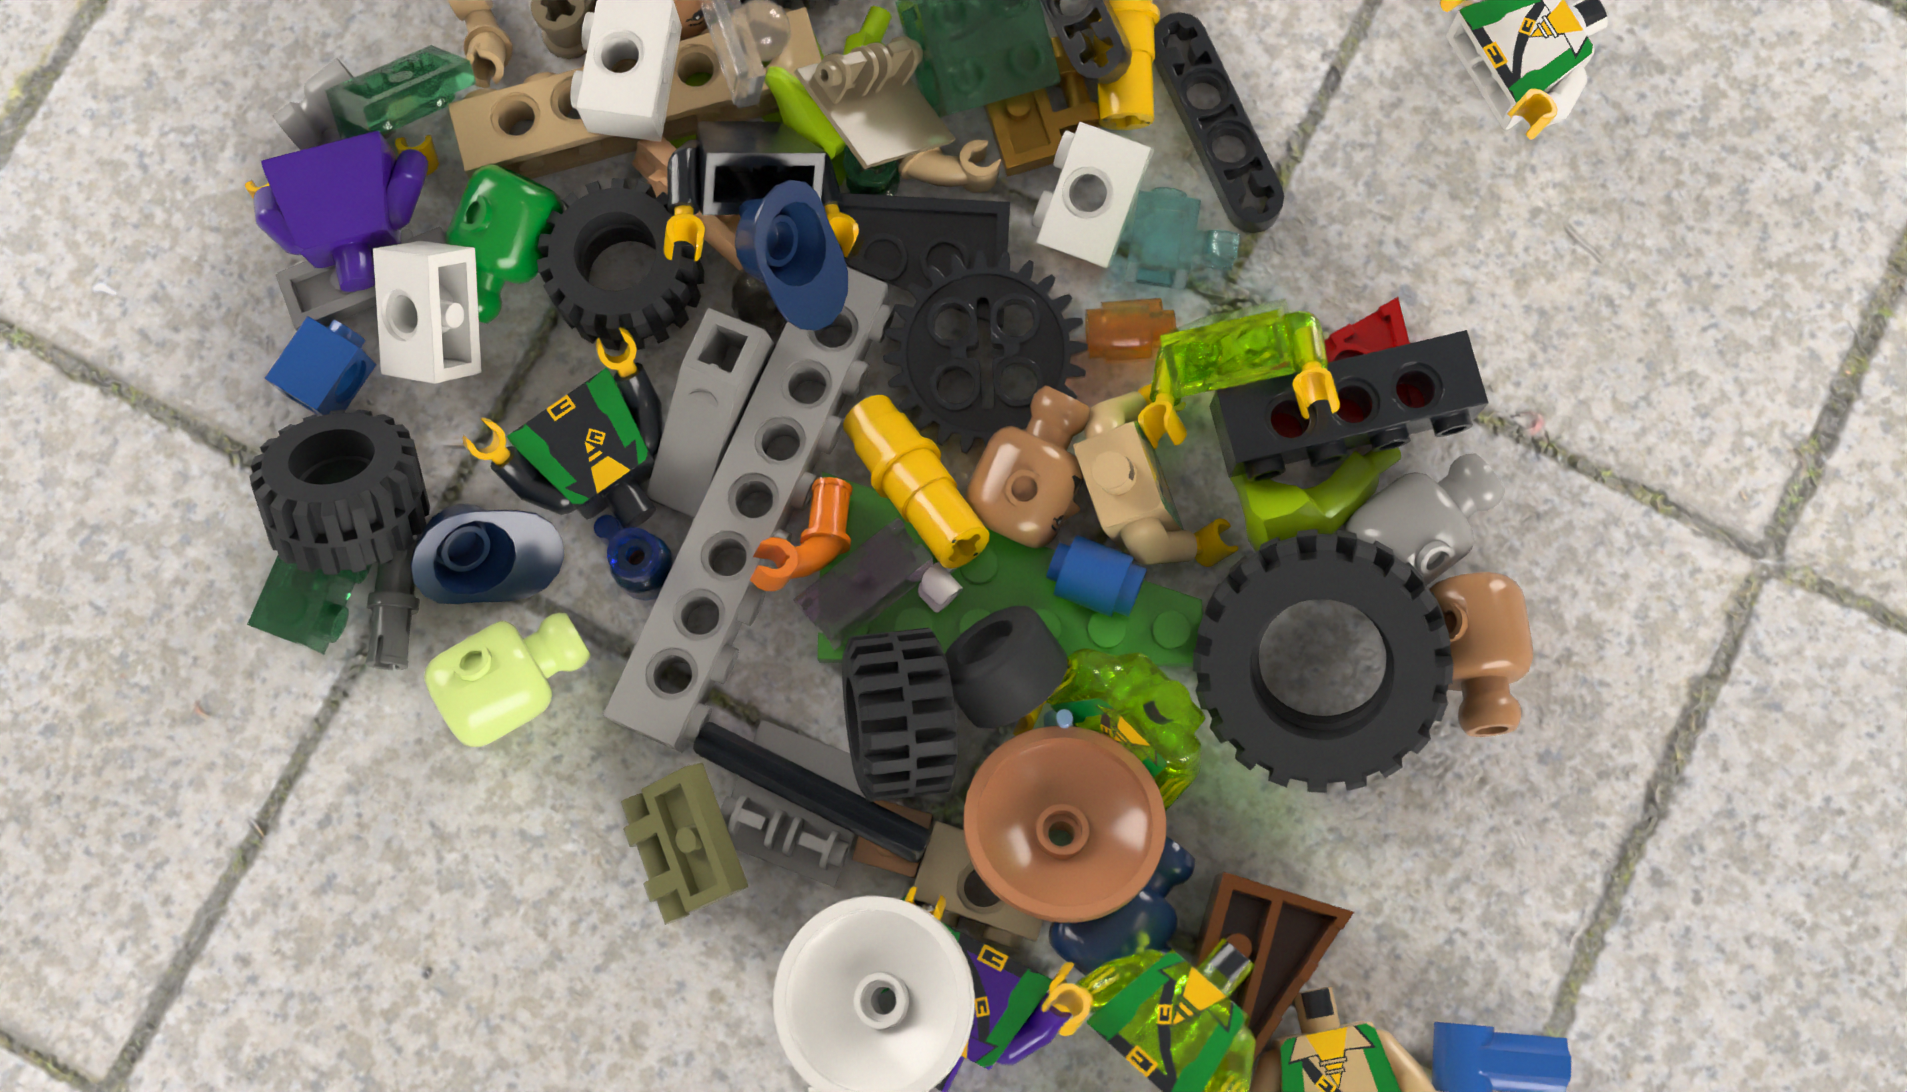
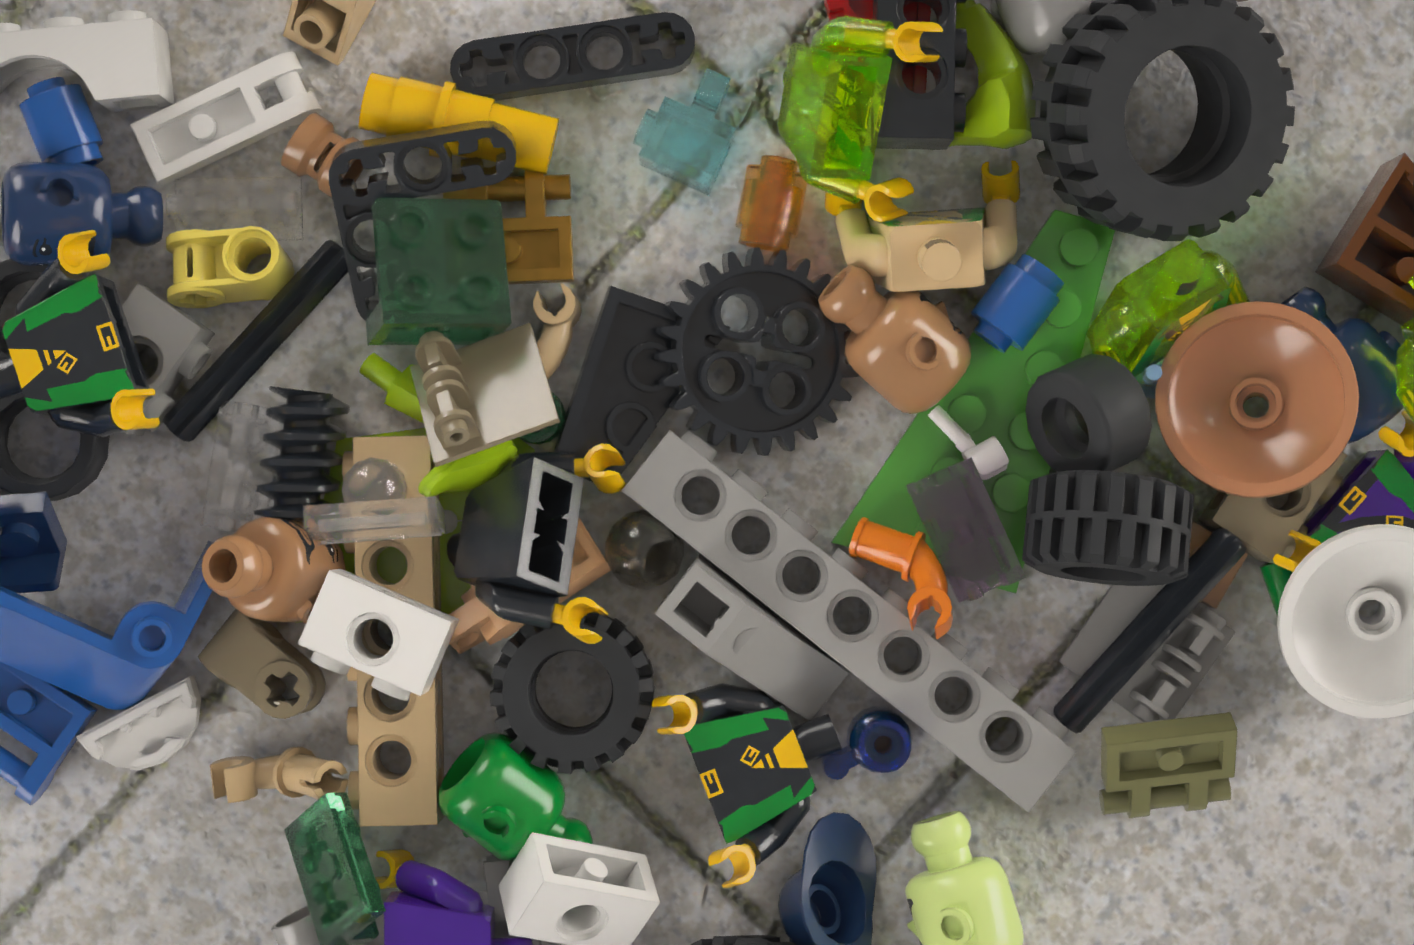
camera: 80 degrees left, 10 degrees up
(795, 253) = (630, 514): dark blue piece -> none
(914, 479) = (874, 454): yellow piece -> none
(1120, 166) = (663, 211): white brick -> none

